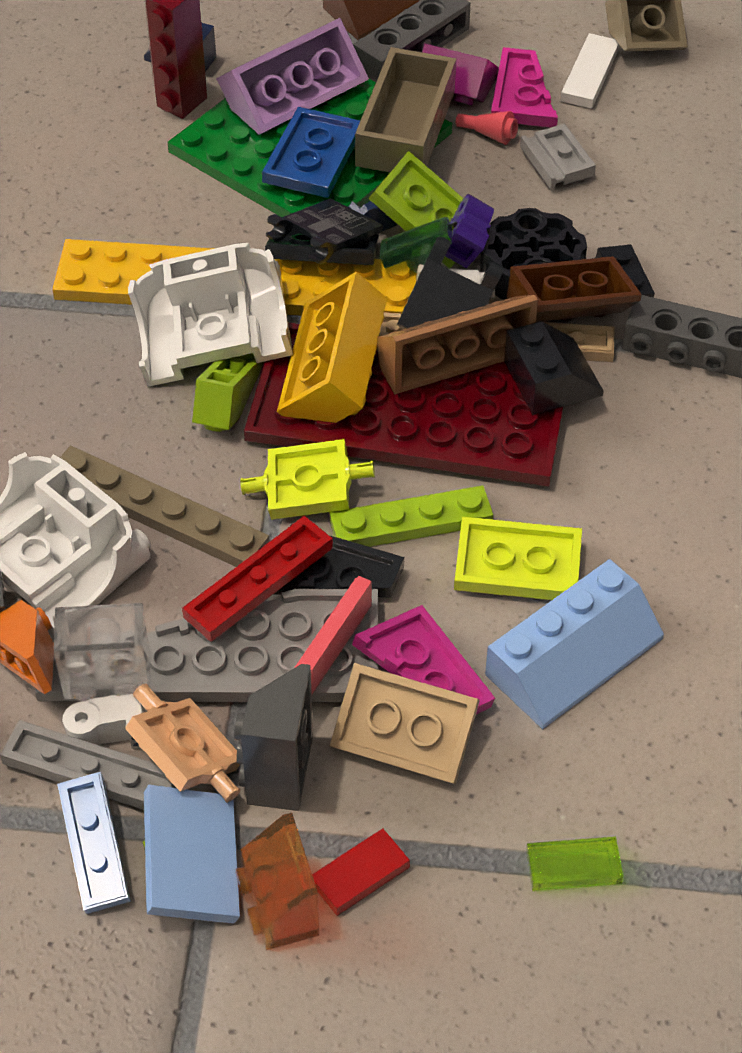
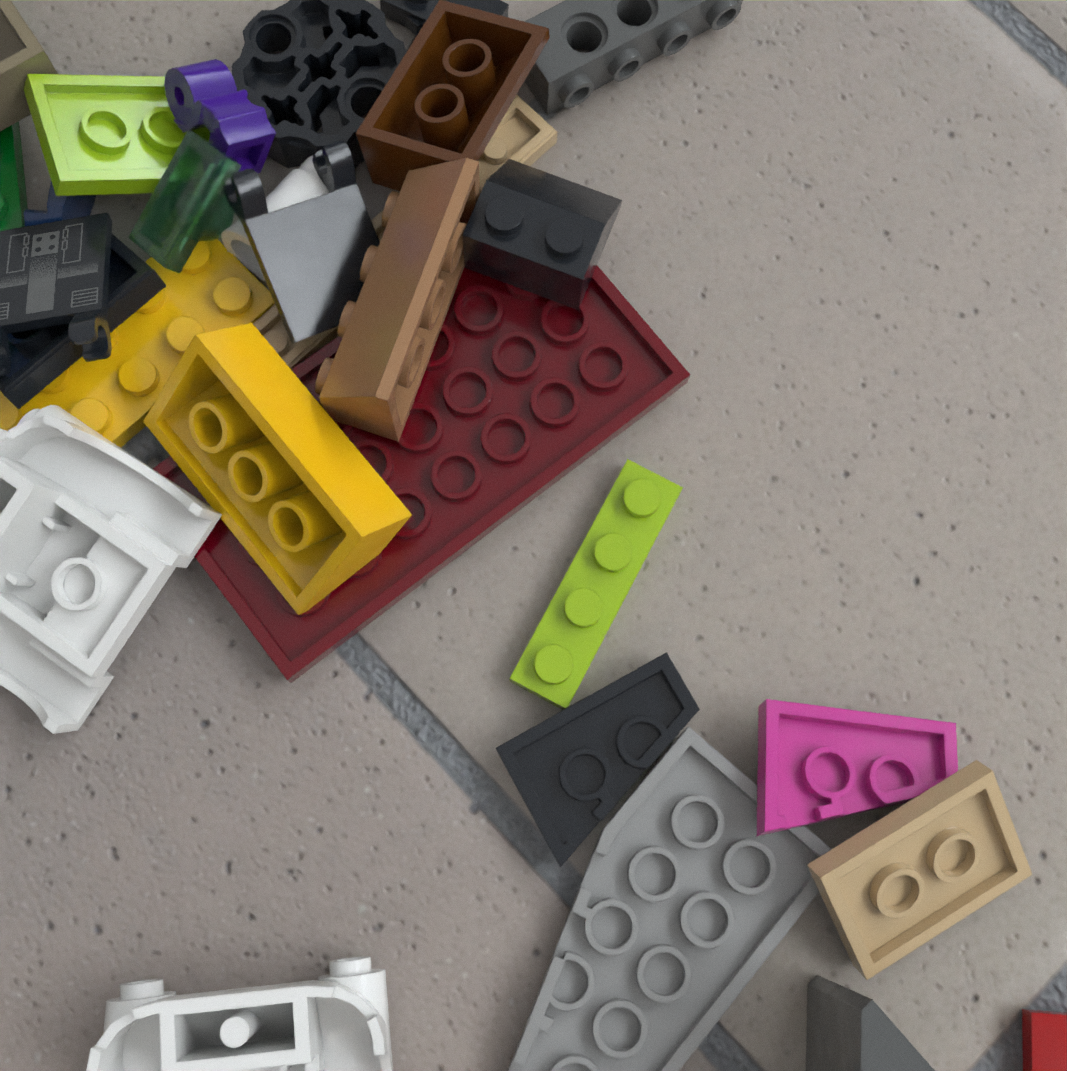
camera: 55 degrees left, 25 degrees up
(169, 511) = (299, 889): dark tan plate -> none
(224, 391) = (199, 654): lime slope -> none
(257, 578) = (565, 878): red plate -> none
(307, 479) = (437, 664): neon yellow plate -> none
(337, 630) = (757, 896): coral tile -> none
(517, 558) = (772, 517): neon yellow plate -> none
(573, 644) = (945, 565): light blue slope -> none

